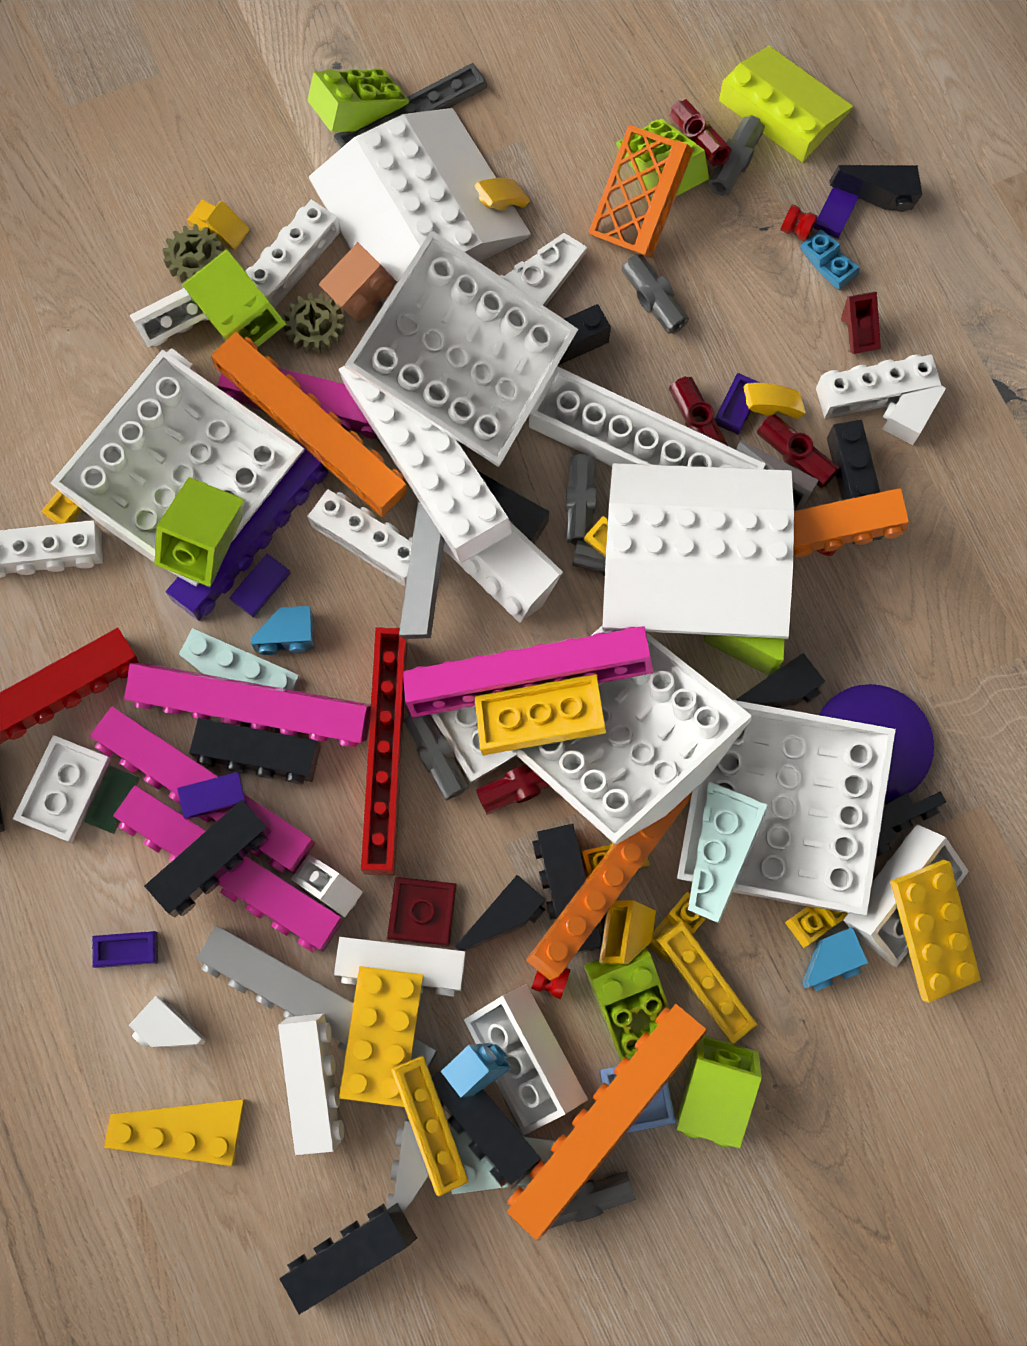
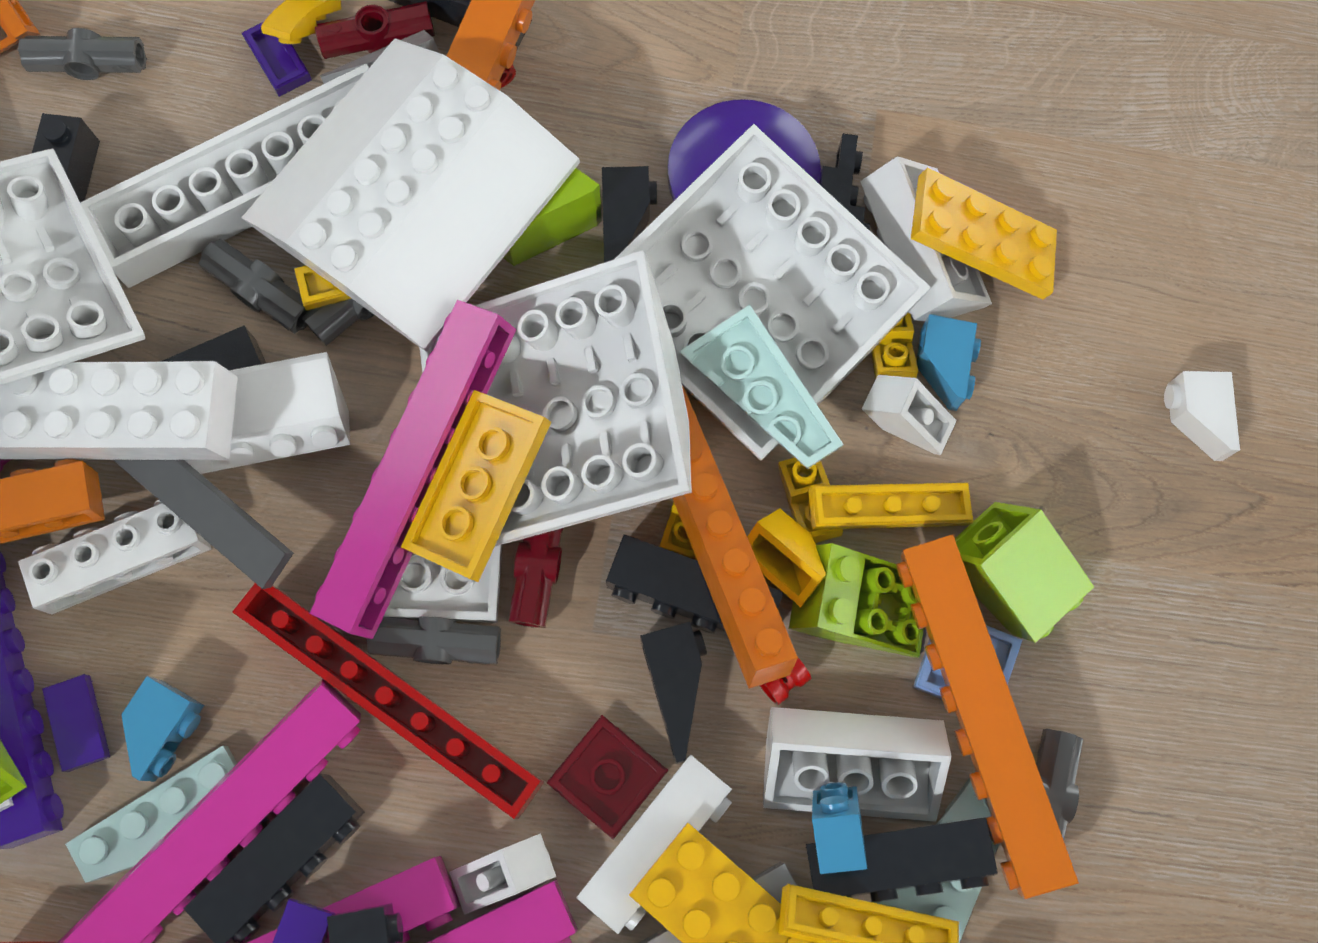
camera: 60 degrees left, 0 degrees up
(692, 404) = (242, 98): dark red piece -> none
(778, 957) = (909, 412): none -> white slope
(919, 1158) = (1205, 411): none -> white slope

